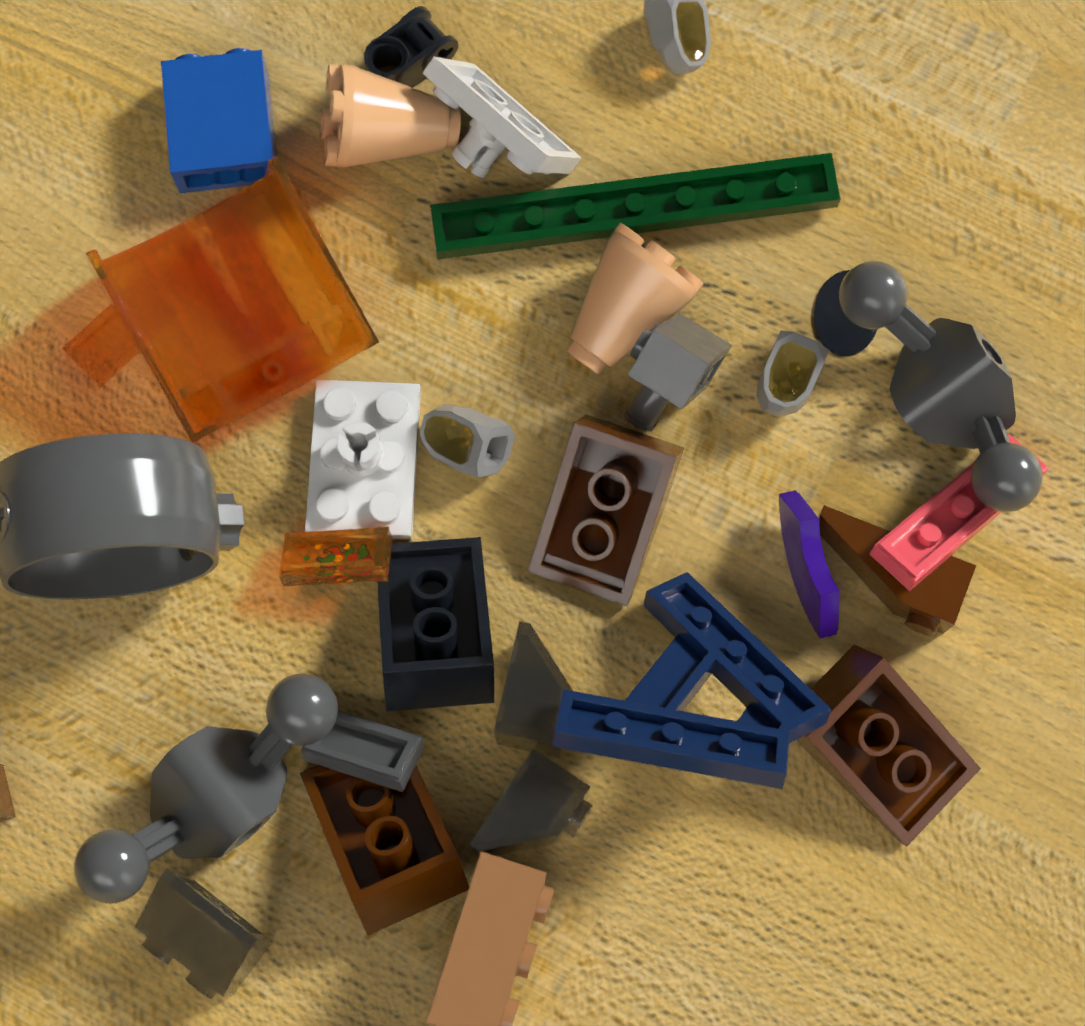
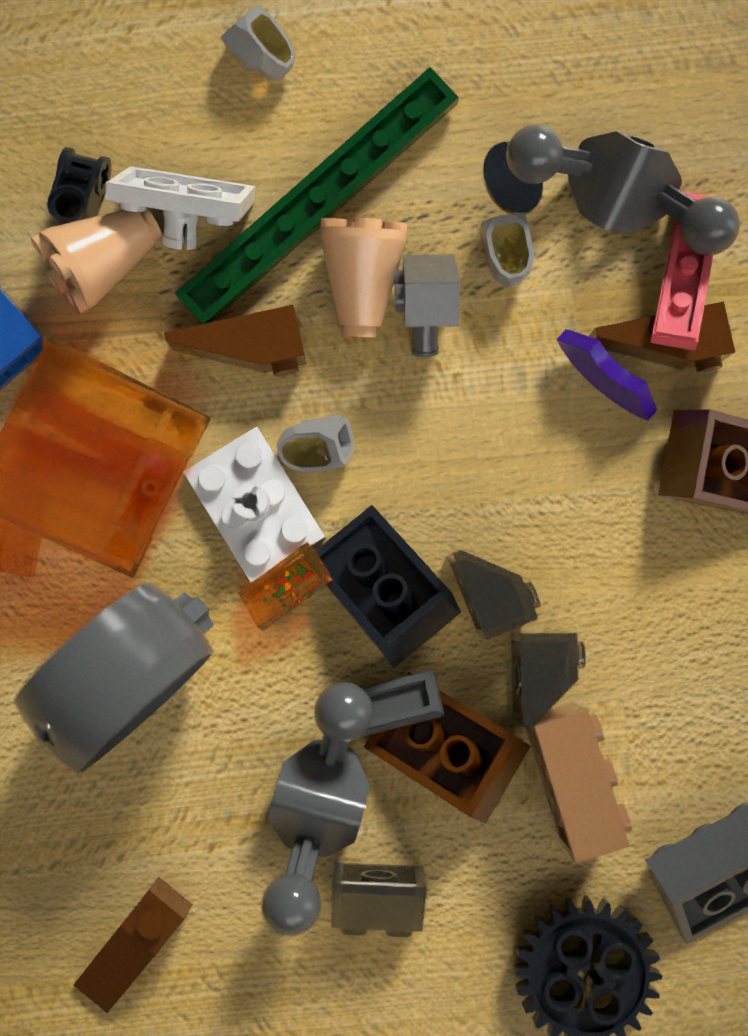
camera: 35 degrees left, 10 degrees up
(476, 301) = (252, 341): none -> reddish brown slope
(605, 508) = (446, 427): reddish brown slope -> none
(652, 720) = (587, 565): dark blue plate -> none

